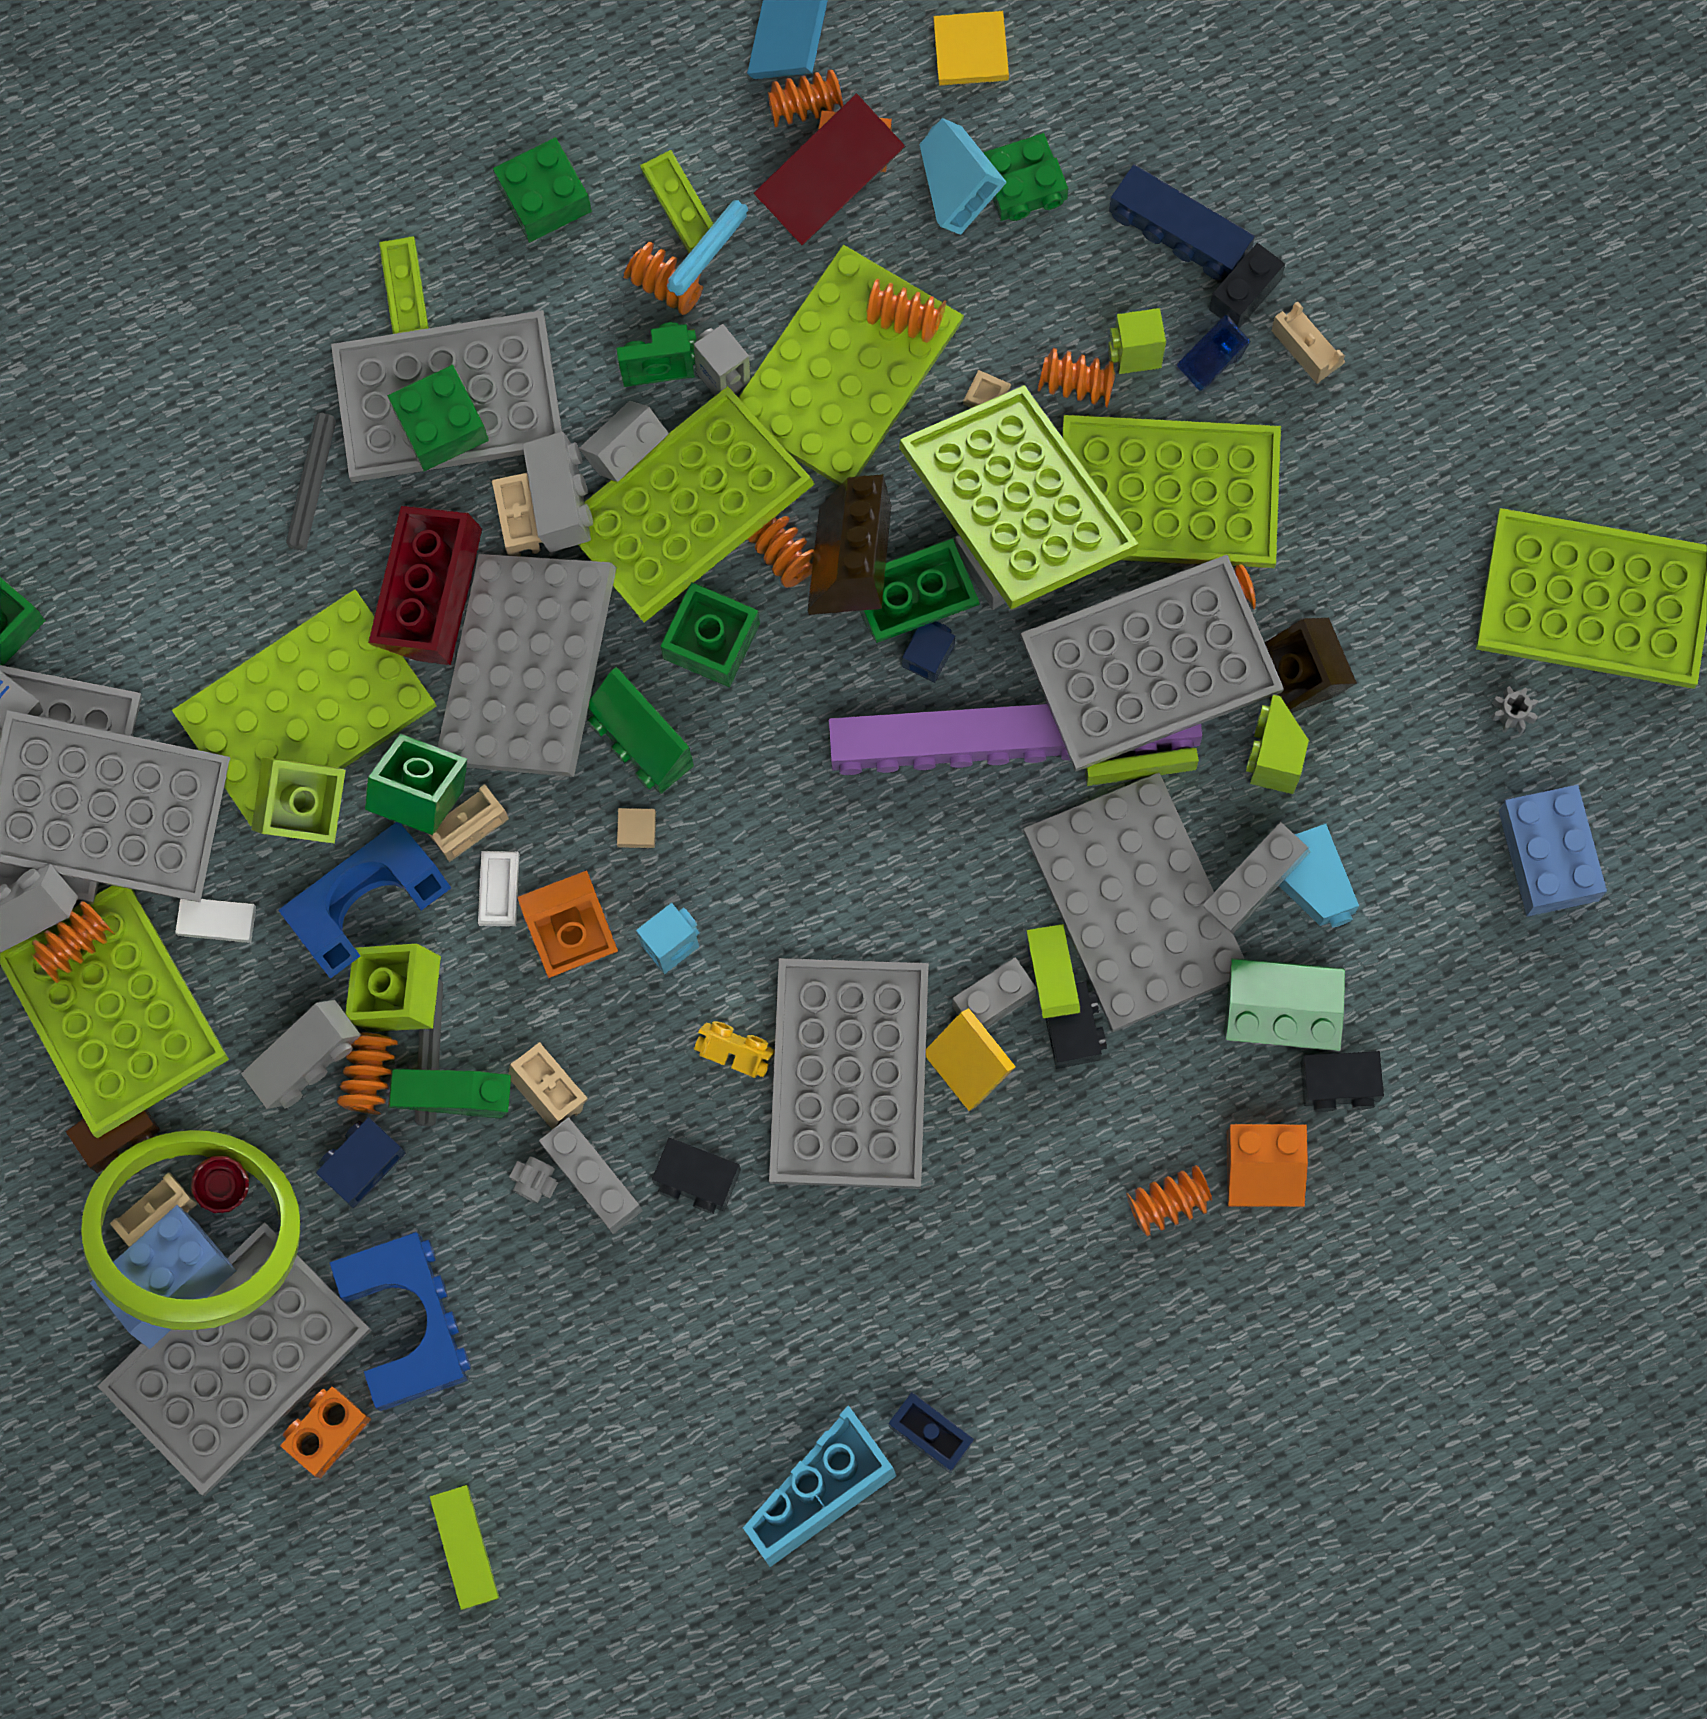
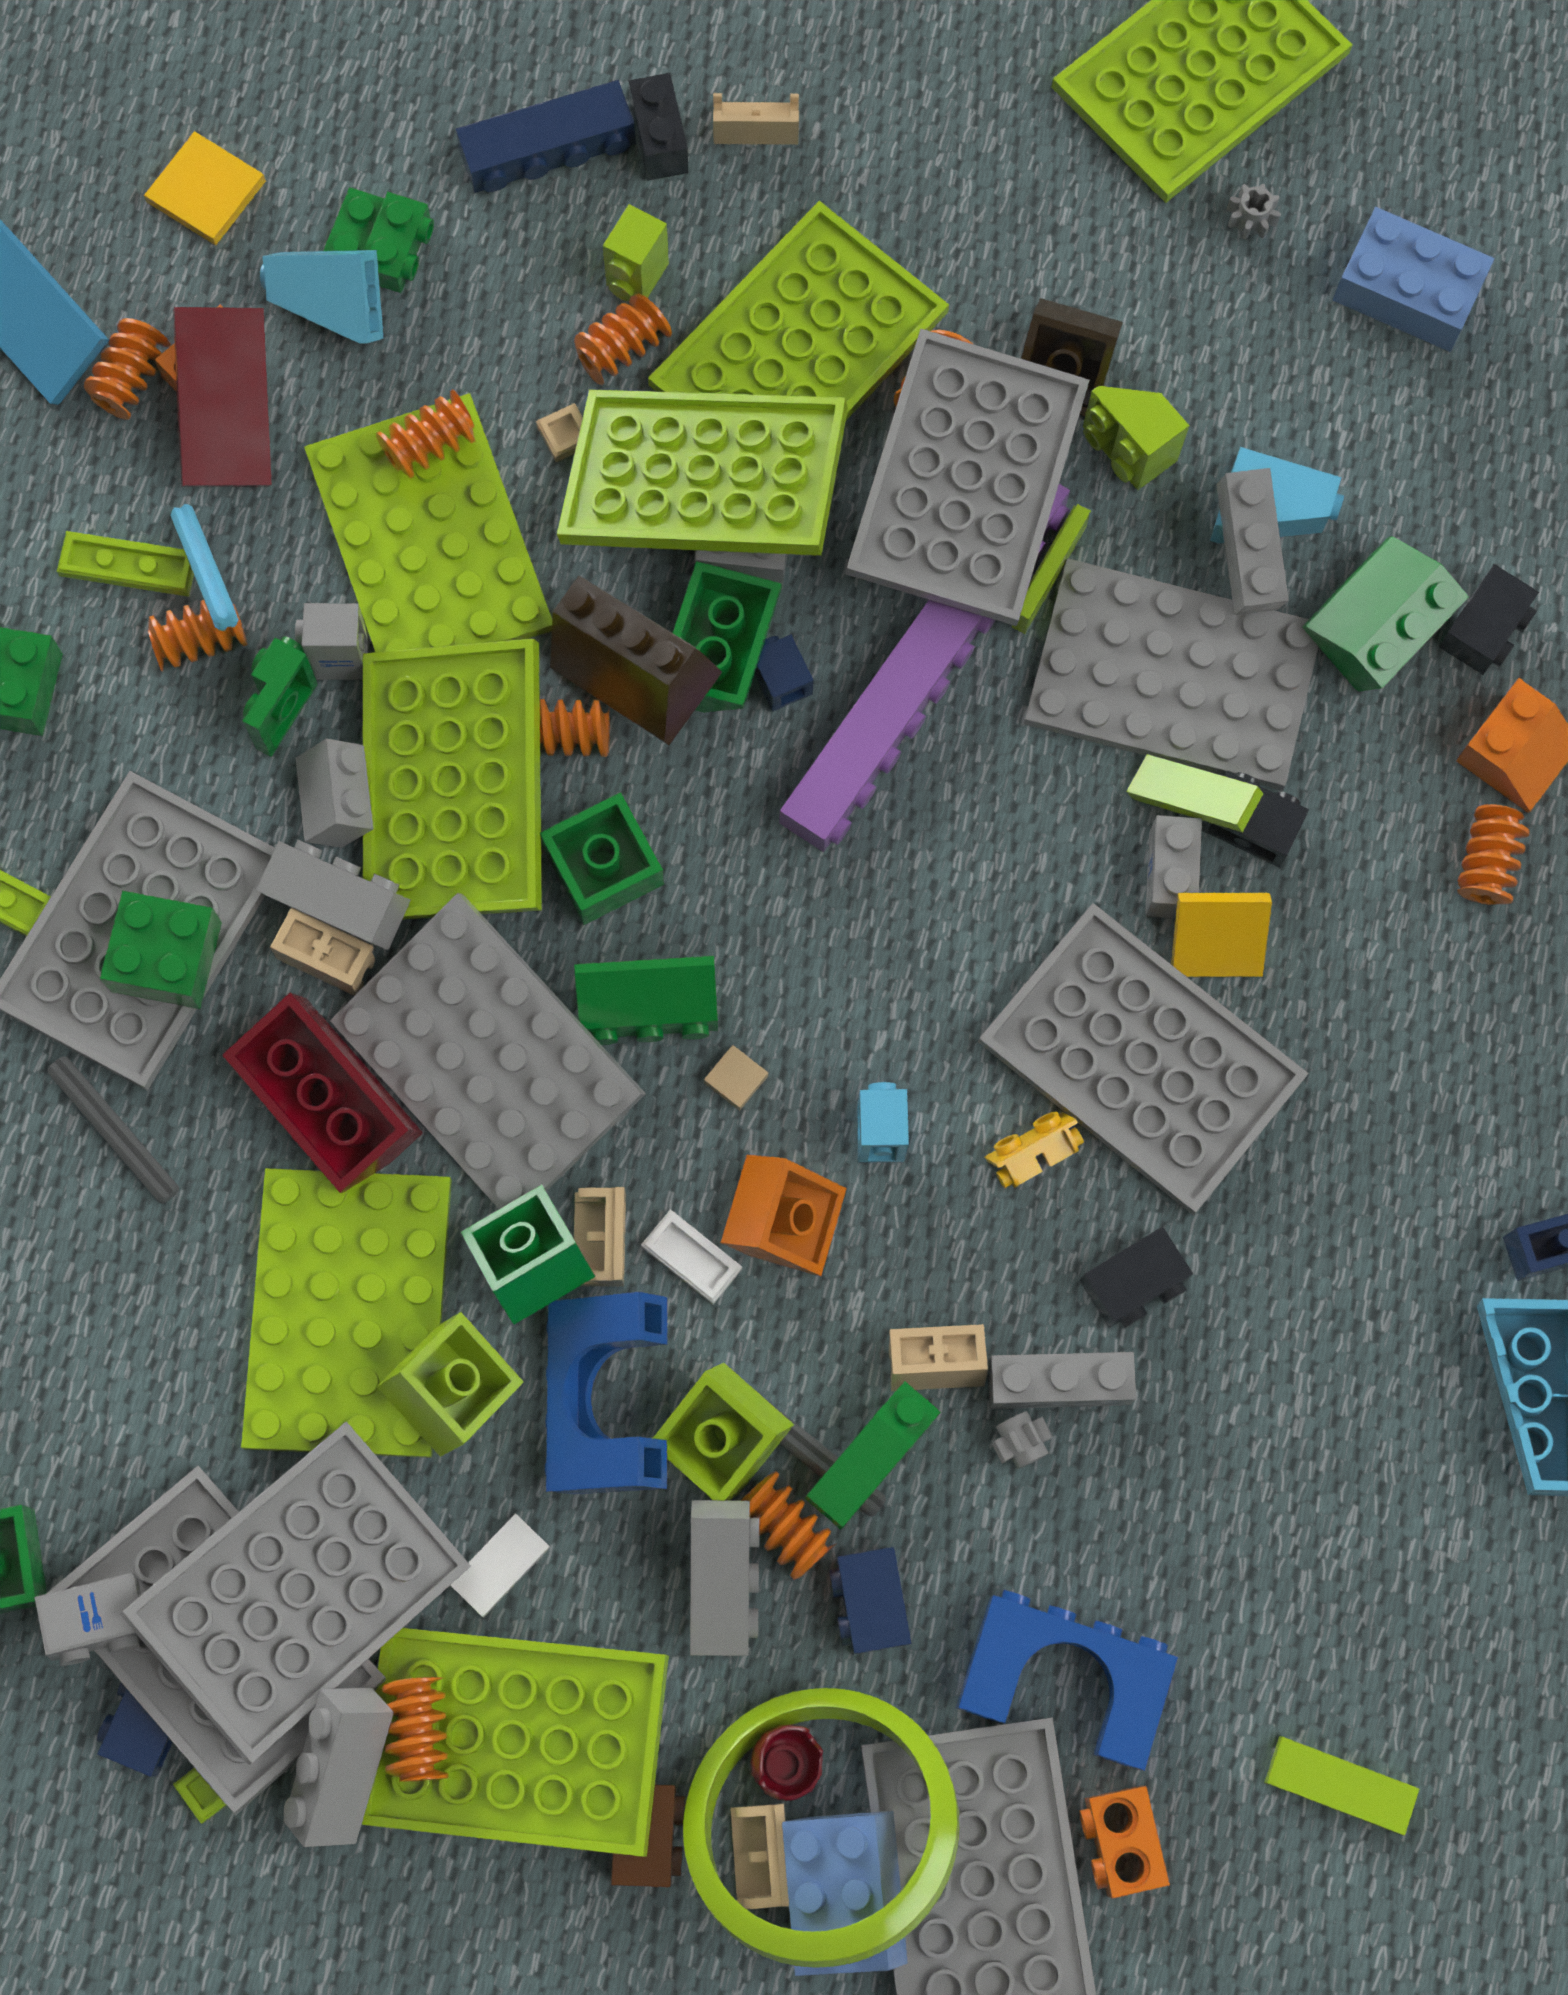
camera: 60 degrees left, 0 degrees up
(1214, 353) = (700, 201): clear blue slope -> none

